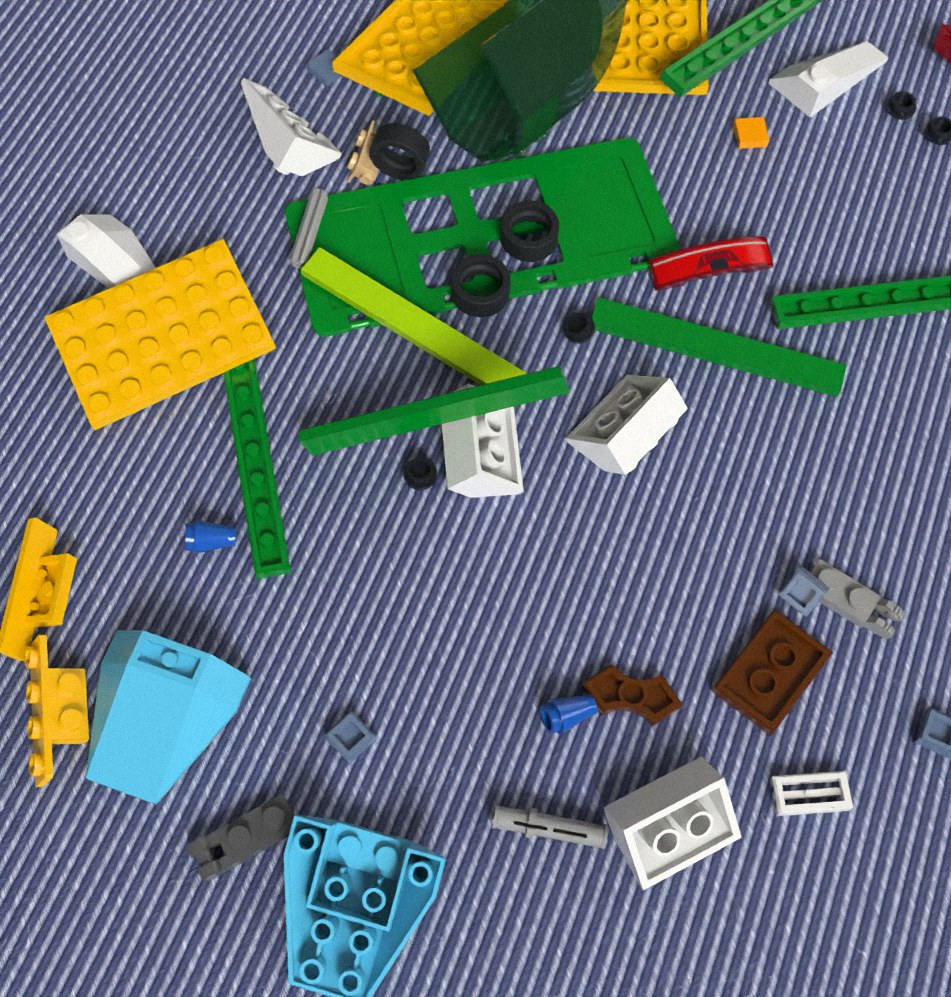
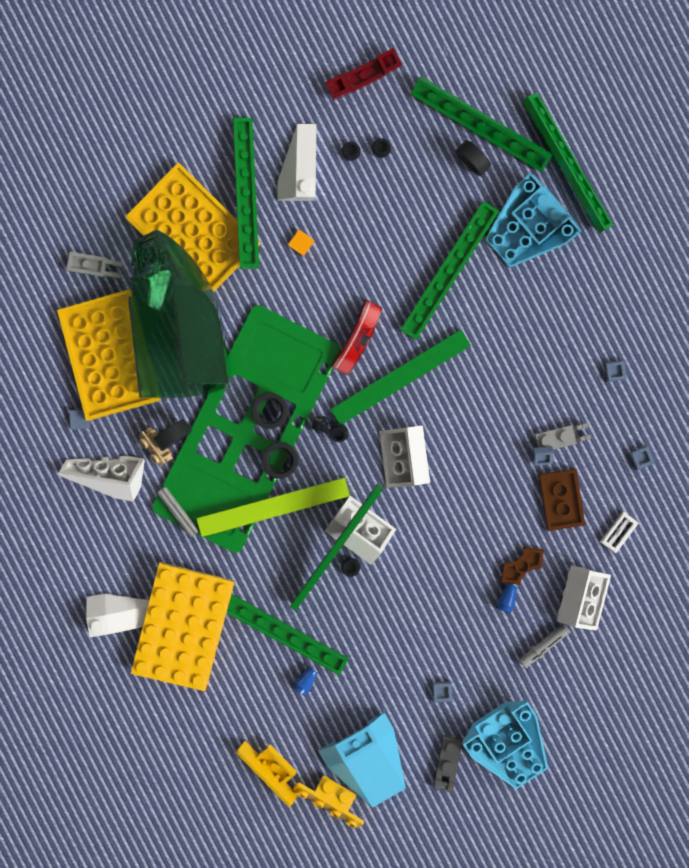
camera: 45 degrees left, 25 degrees up
(567, 299) = (320, 424): none -> black plate

